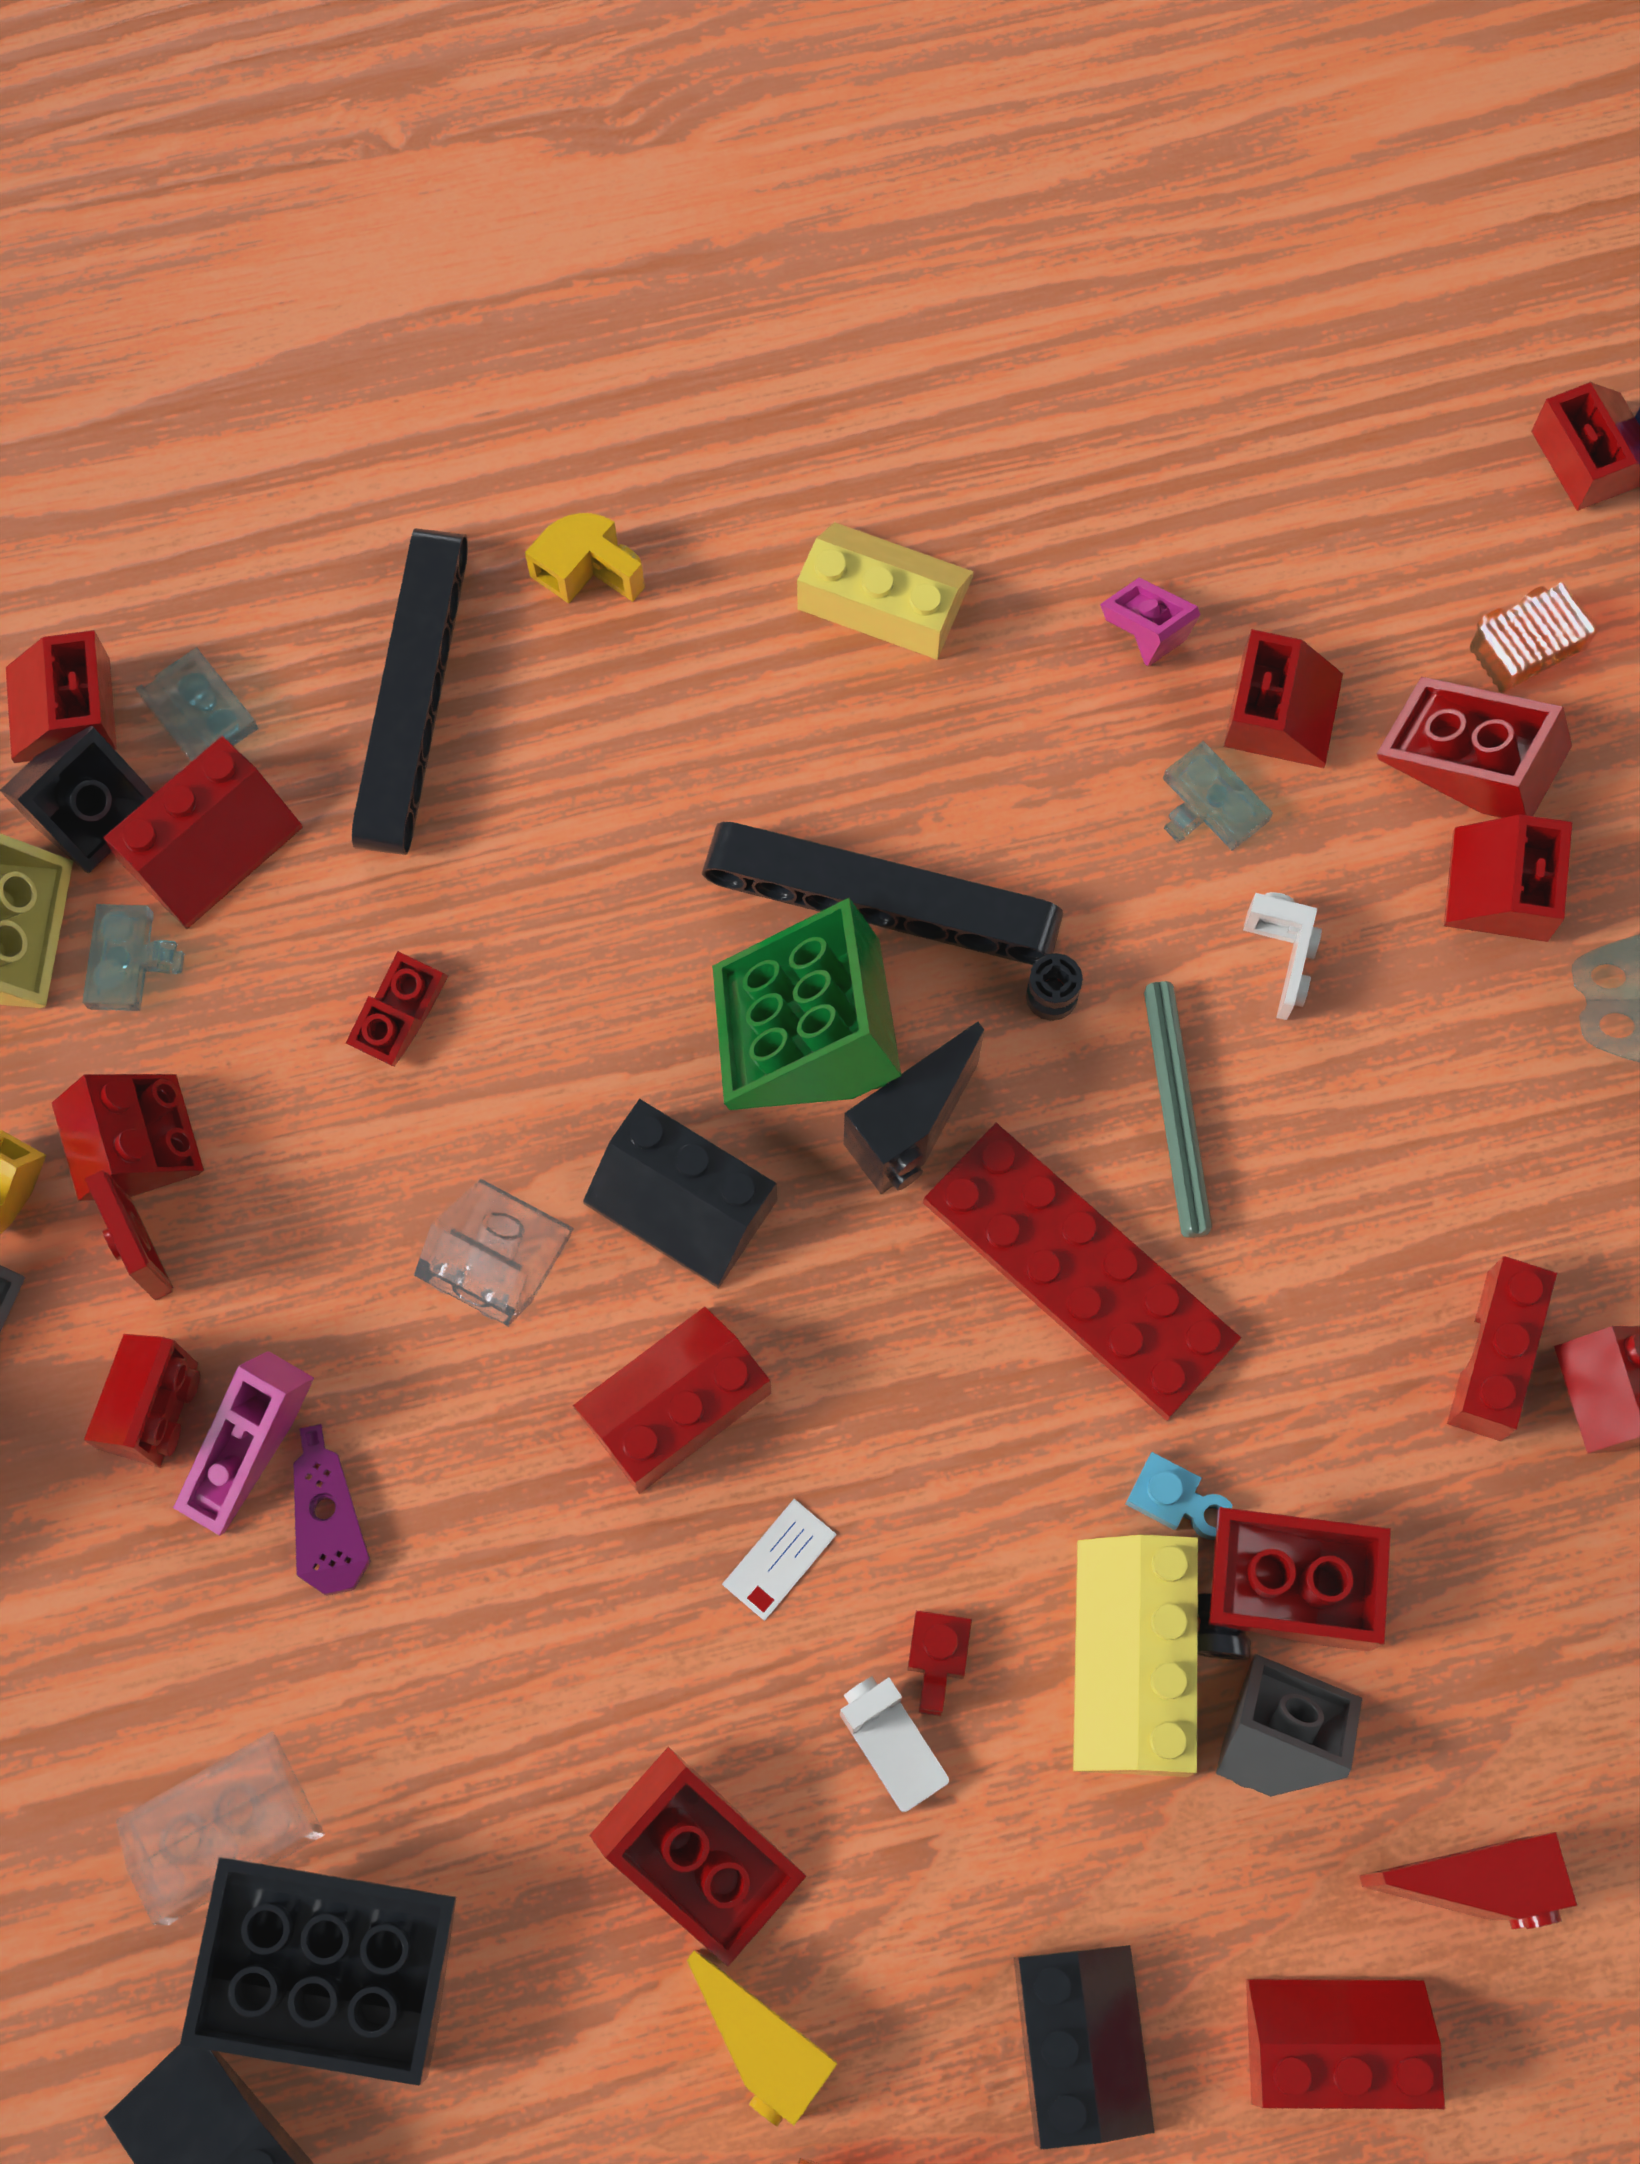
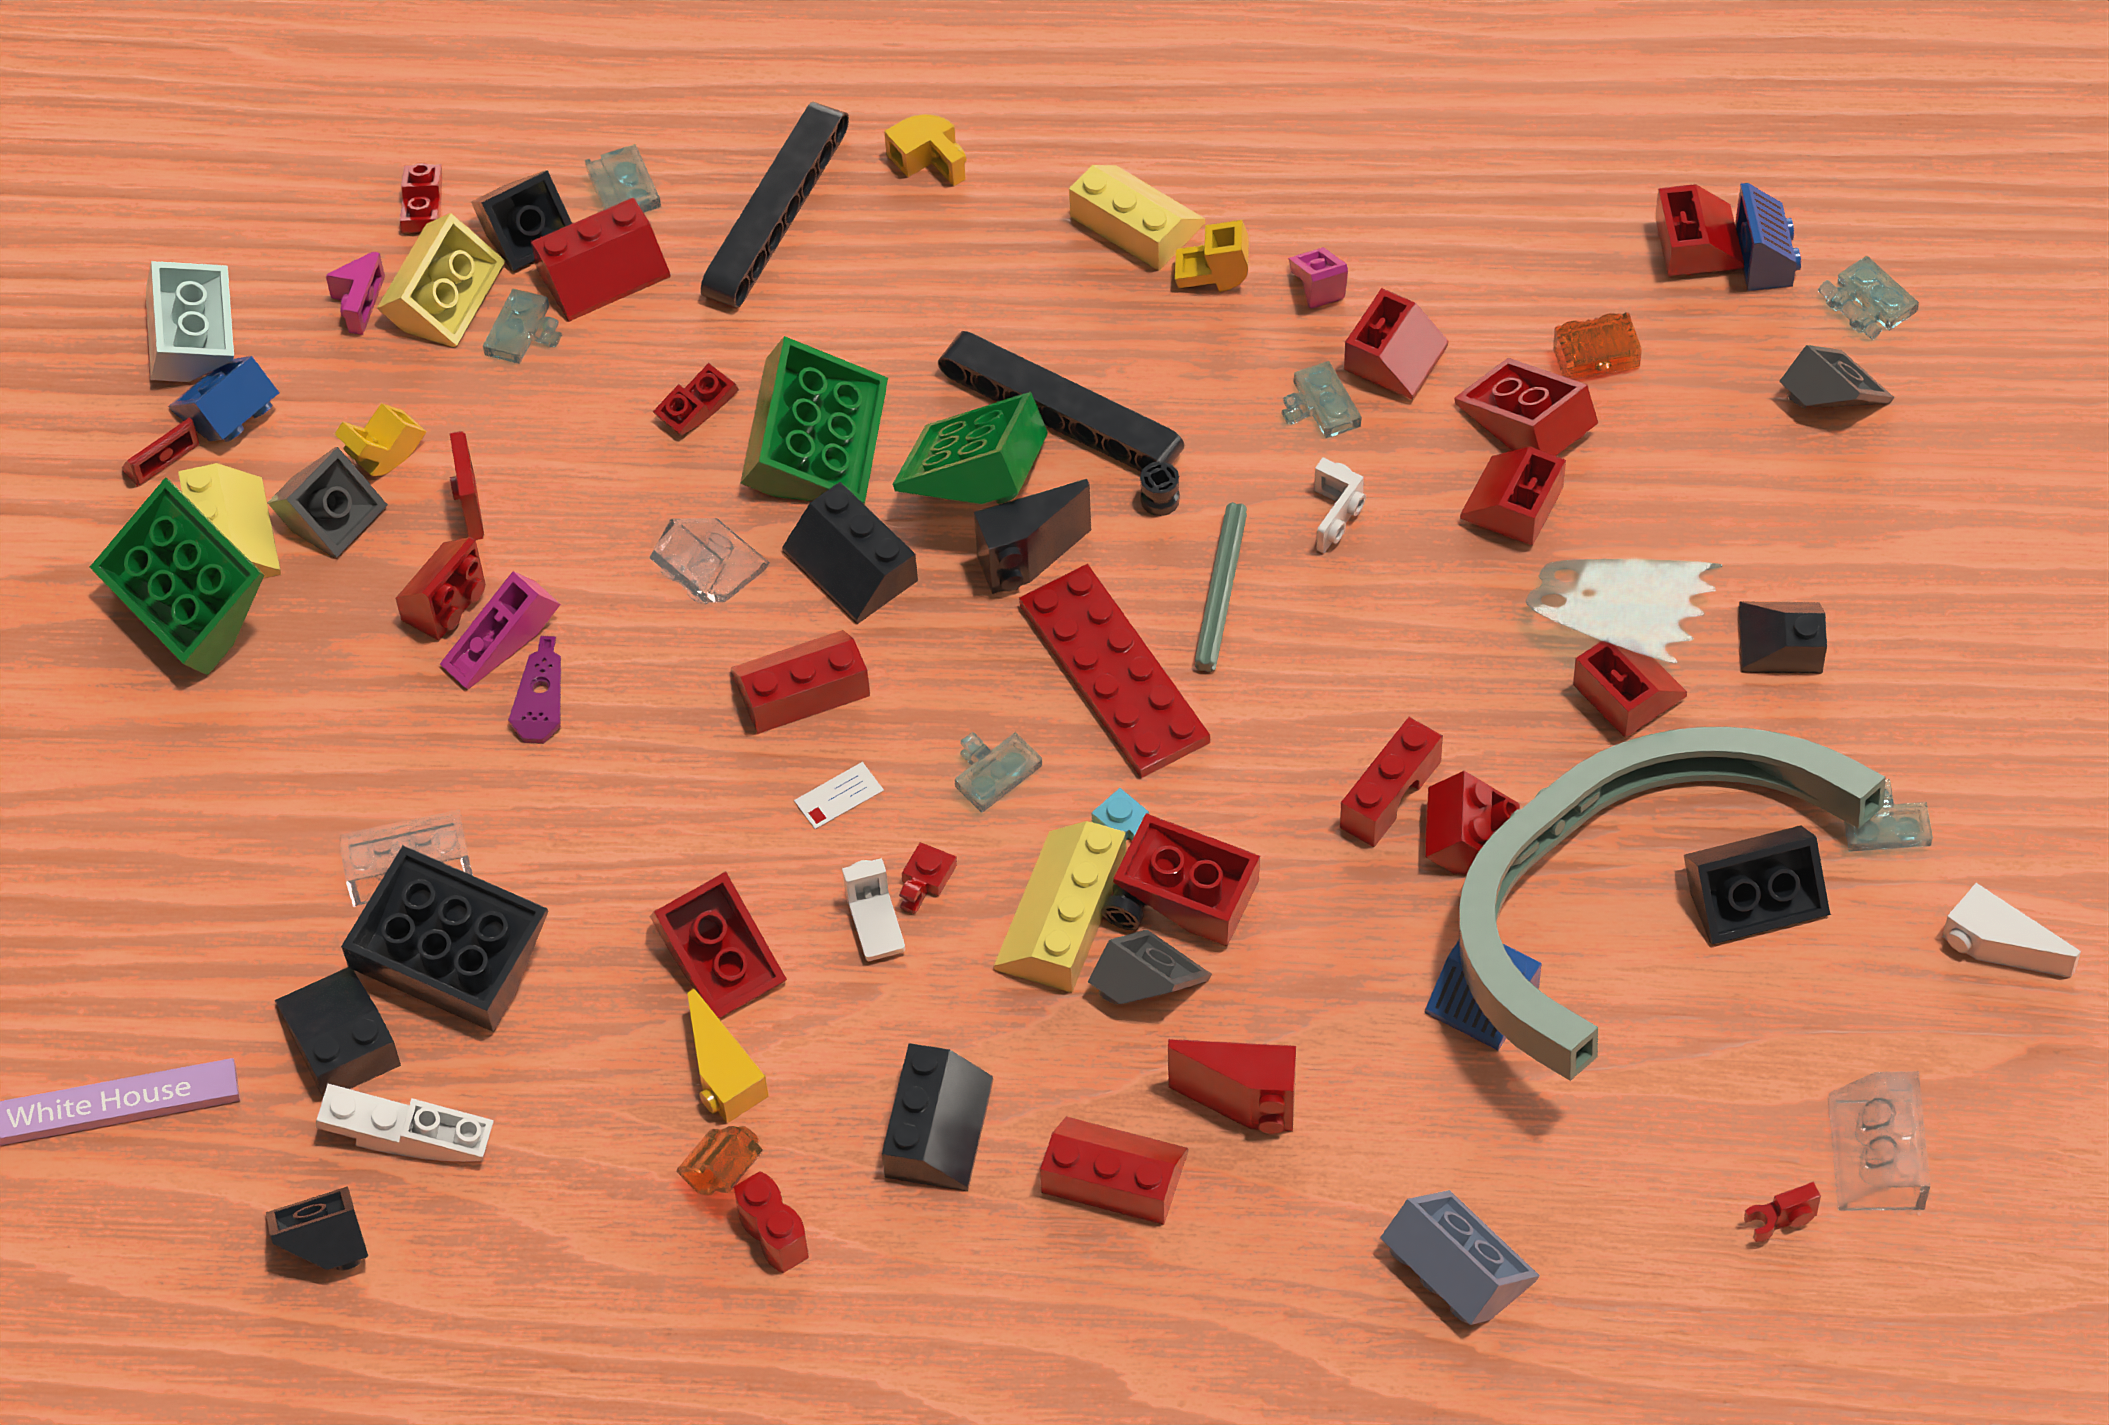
camera: 20 degrees right, 15 degrees down
(57, 692) = (531, 145): red slope -> none
(129, 1129) = (494, 428): red slope -> none
(569, 1012) = (813, 424): none -> green slope
(981, 1470) = (994, 770): none -> clear light blue plate
(1022, 634) = (1219, 261): none -> brick

